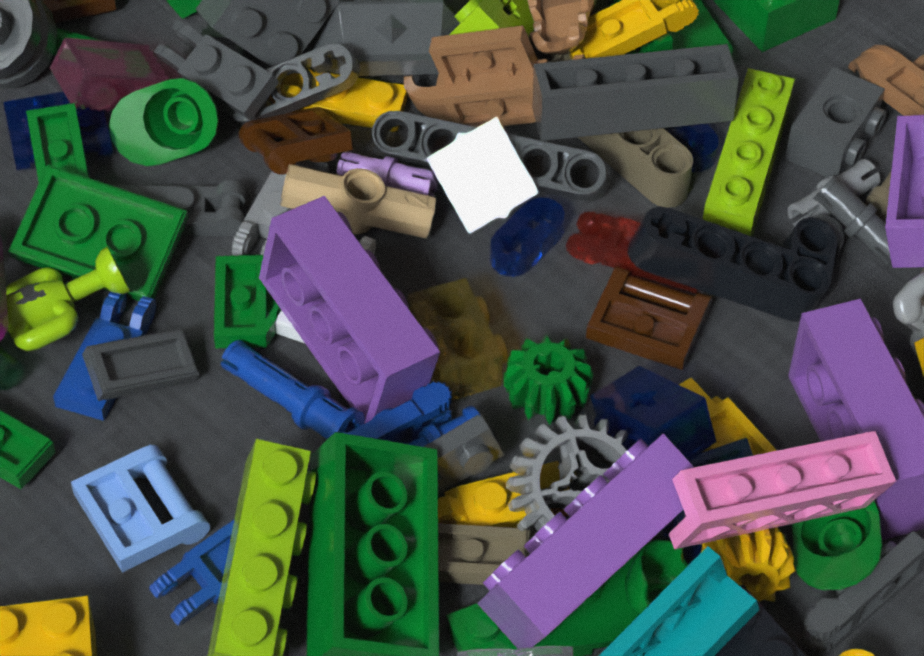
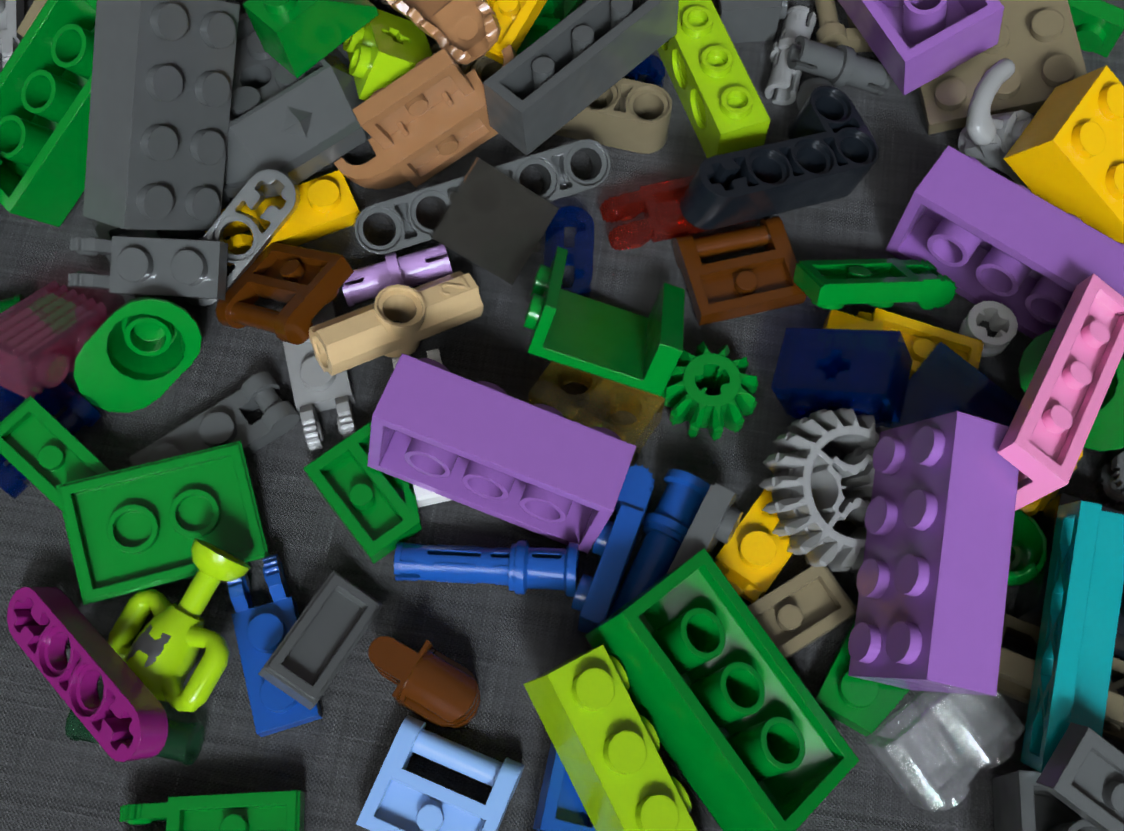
camera: 35 degrees left, 15 degrees up
(188, 433) = (427, 681): none -> reddish brown arm
(492, 288) = (604, 337): none -> green panel
(741, 379) = (873, 282): none -> green hinge

